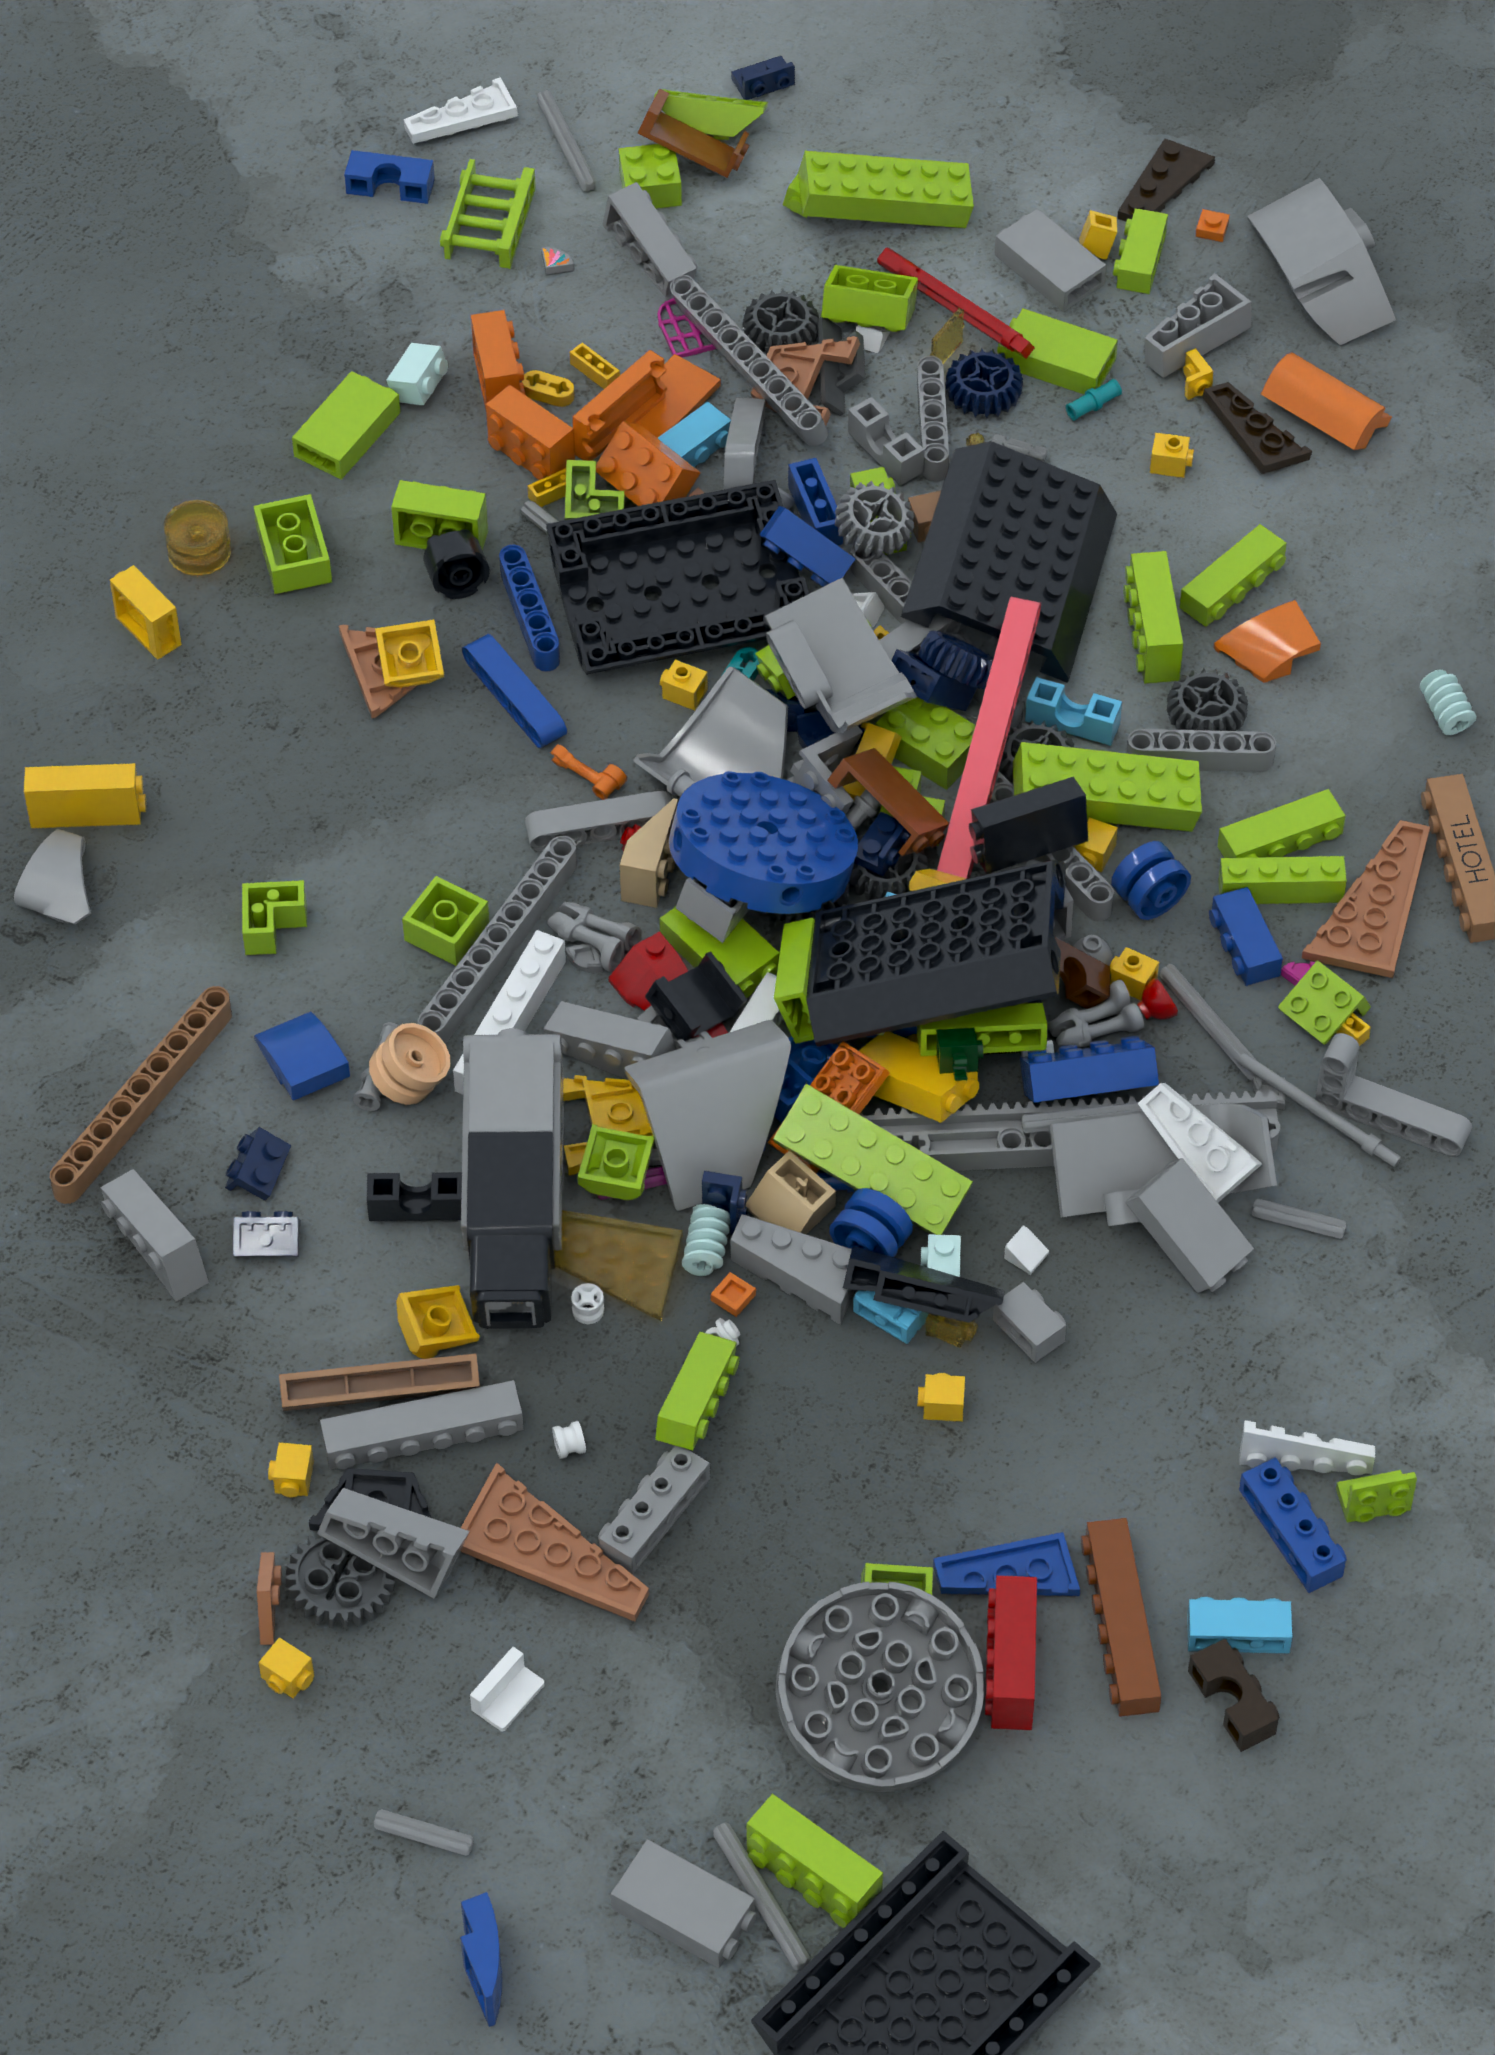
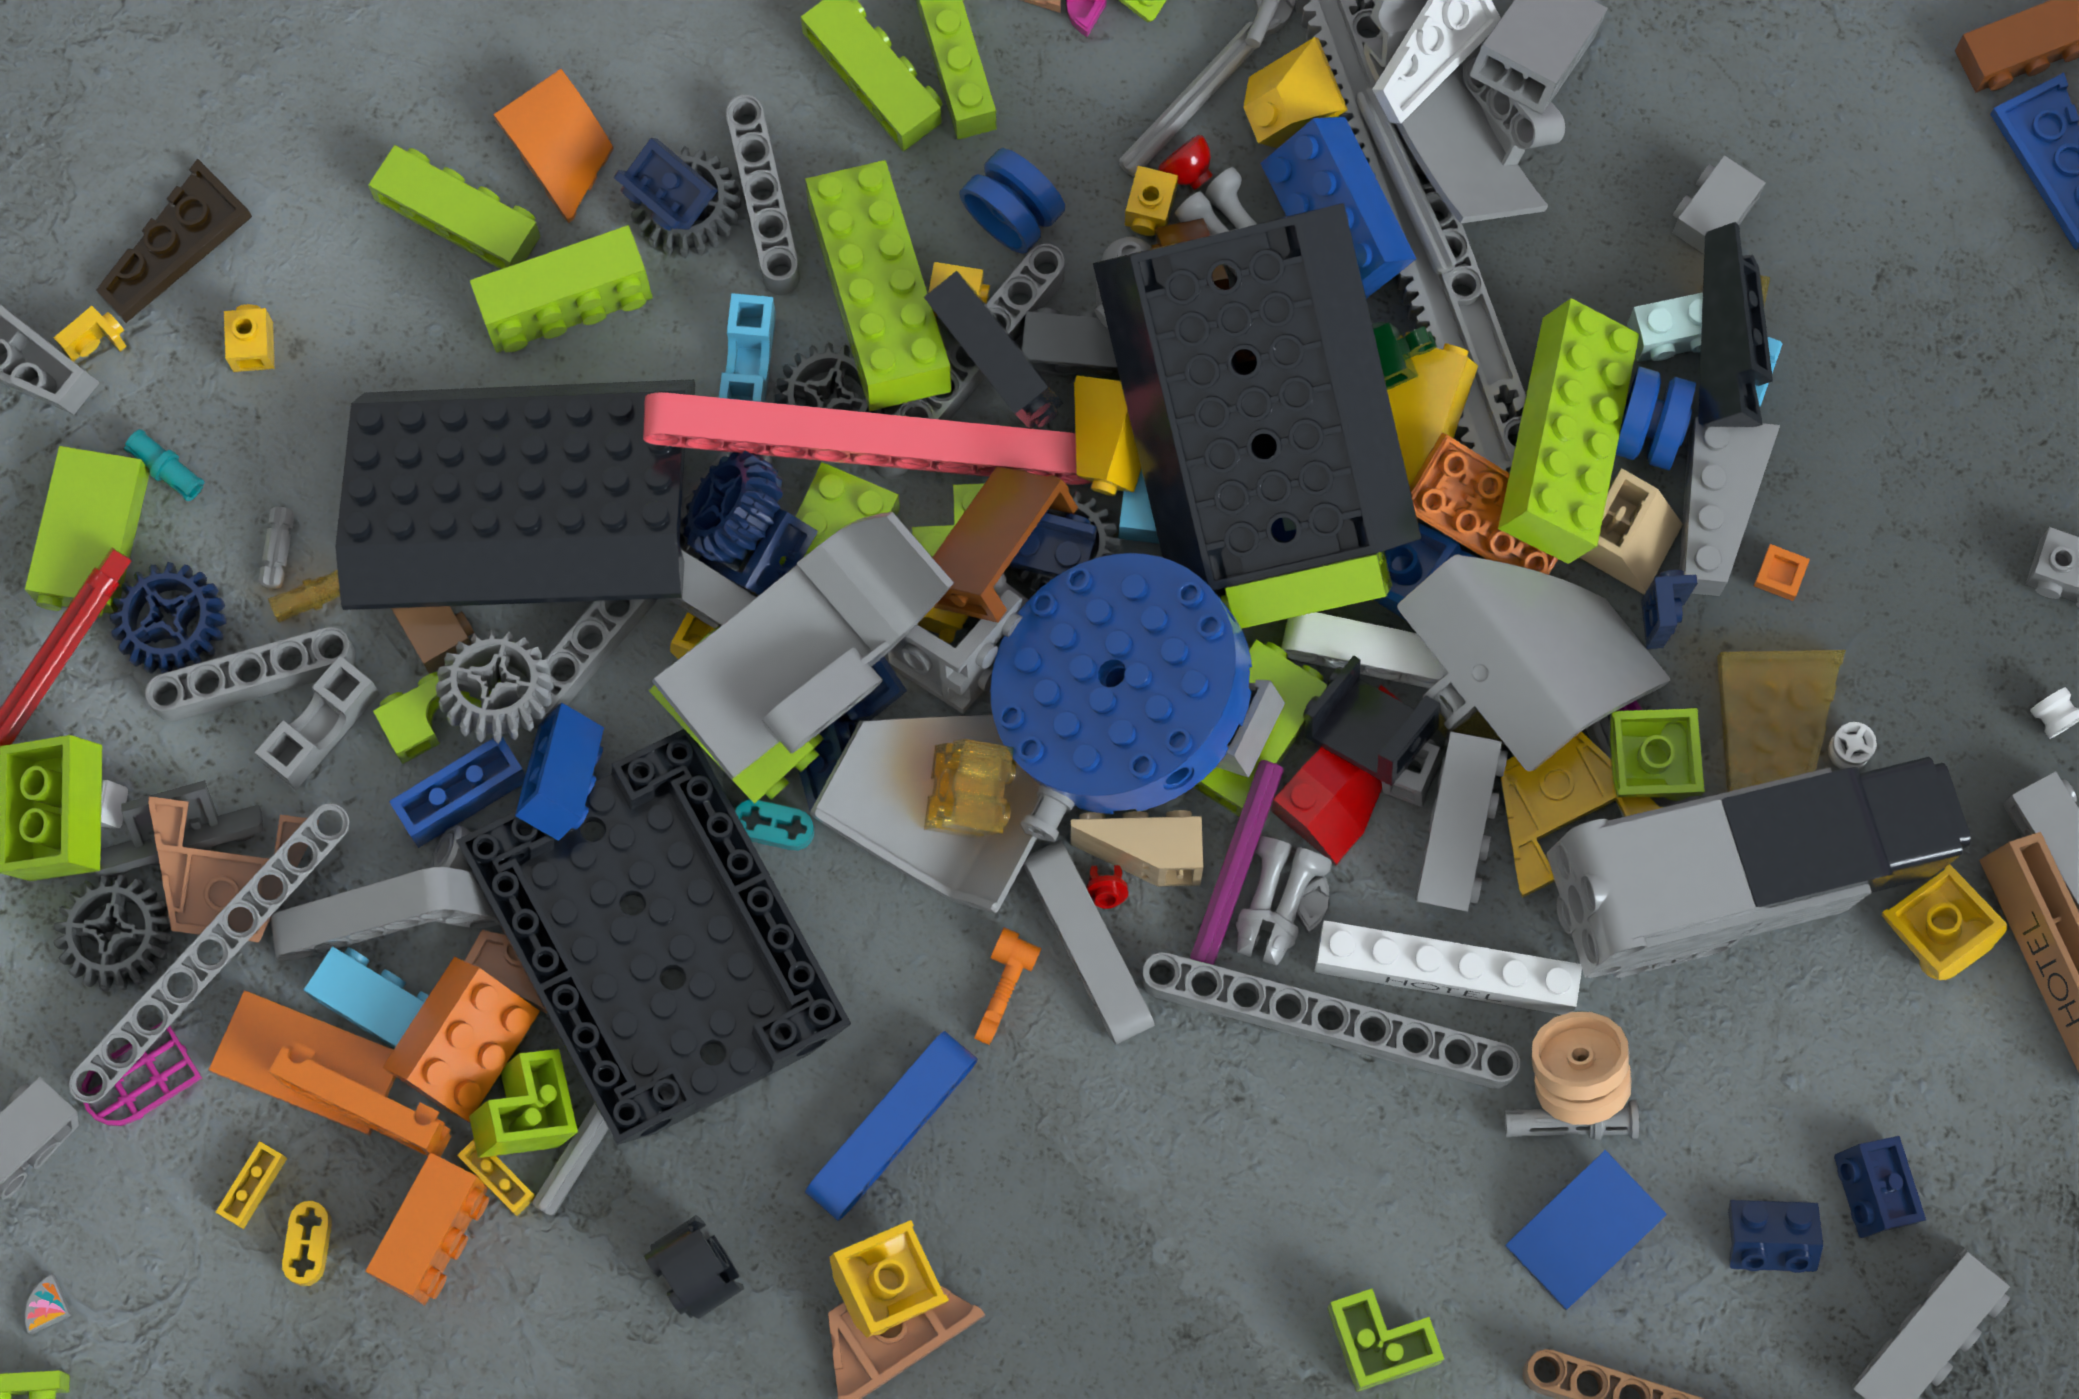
camera: 105 degrees left, 20 degrees up
(394, 1201) = (1765, 984): black arch -> none
(434, 510) = (616, 1315): lime brick -> none
(445, 920) = (1324, 1095): lime brick -> none
(495, 354) = (294, 1320): orange brick -> none
(529, 608) = (726, 1166): blue beam -> none
(624, 908) = (1236, 862): none -> magenta axle
(684, 684) = (822, 893): yellow brick -> none
(697, 1391) = (1955, 567): lime brick -> none
(706, 1240) = (1719, 619): light aqua piece -> none
(715, 754) = (970, 788): none -> clear yellow brick
(725, 1329) = (1839, 565): white plate -> none
(870, 606) = (617, 691): white slope -> none
(942, 1397) = (1851, 286): yellow brick -> none
(948, 337) = (105, 683): clear yellow piece -> none
(1025, 1250) = (1604, 243): white slope -> none
(1189, 1067) = (1291, 94): none -> yellow slope
(1210, 676) = (666, 186): none -> dark blue bracket
(1245, 936) = (1053, 79): blue brick -> none
(1324, 402) = (110, 152): orange brick -> none

